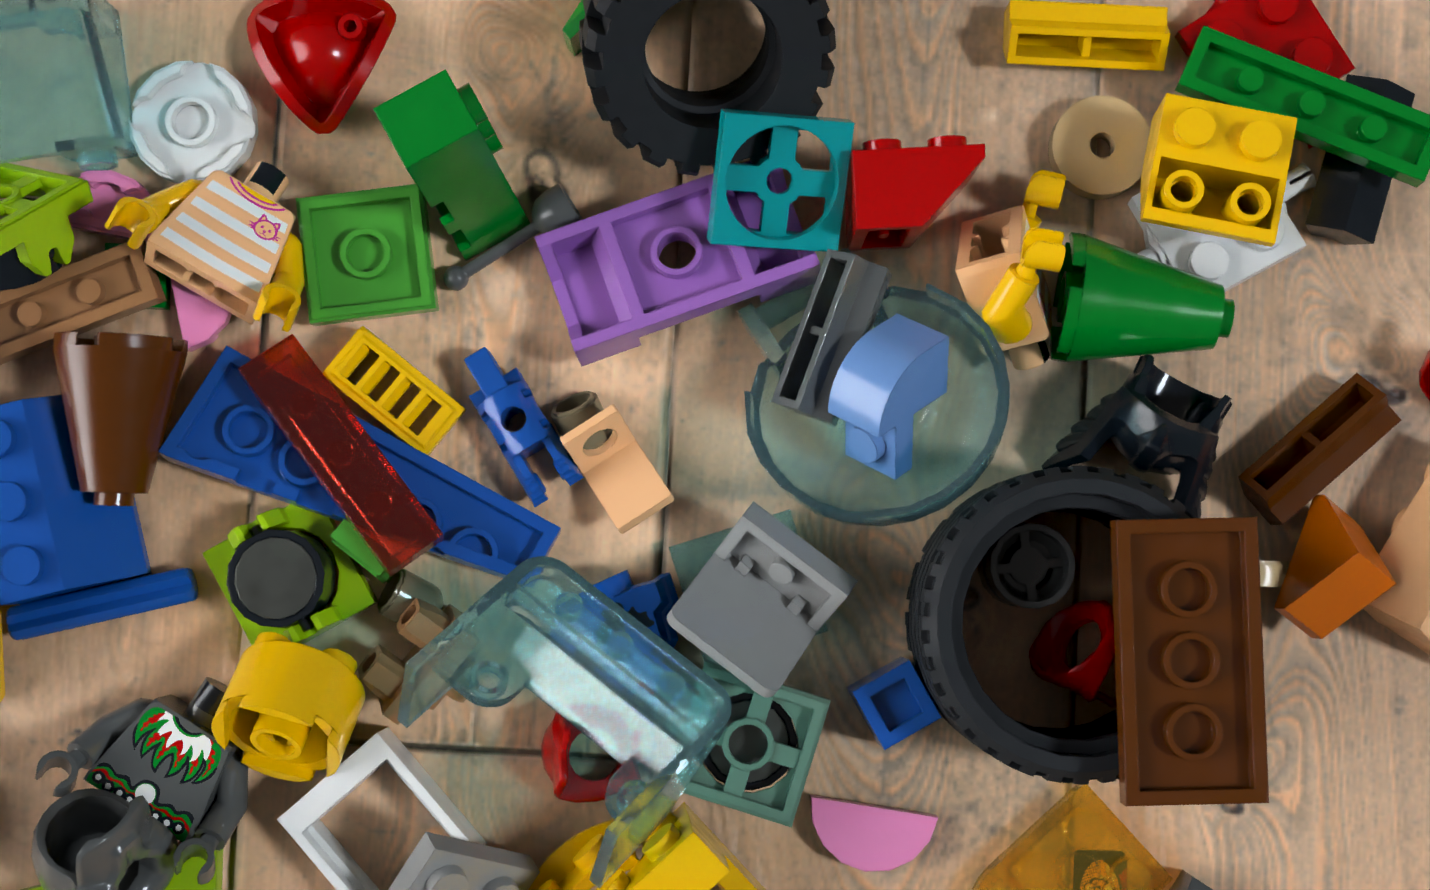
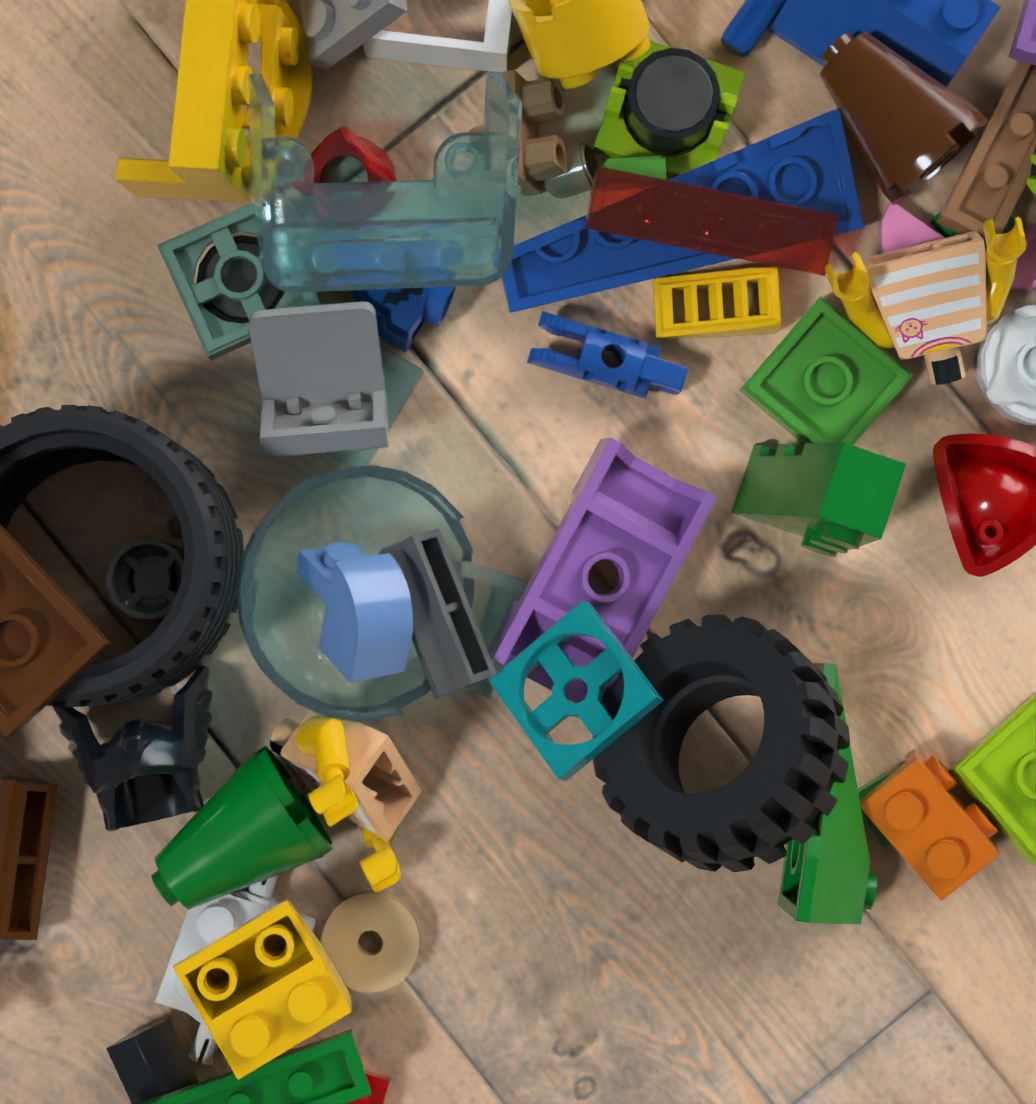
camera: 135 degrees right, 0 degrees up
(550, 211) = (722, 529): dark grey hinge -> none
(576, 410) = (557, 401): dark tan piece -> none
(618, 470) = (505, 388): light nougat bracket -> none
(870, 834) = (100, 299): bright pink tile -> none
(893, 702) = (165, 398): blue panel -> none
(902, 190) = (477, 769): red slope -> none
(1049, 650) = (82, 534): red piece -> none
(1085, 35) = (453, 1014): yellow piece -> none

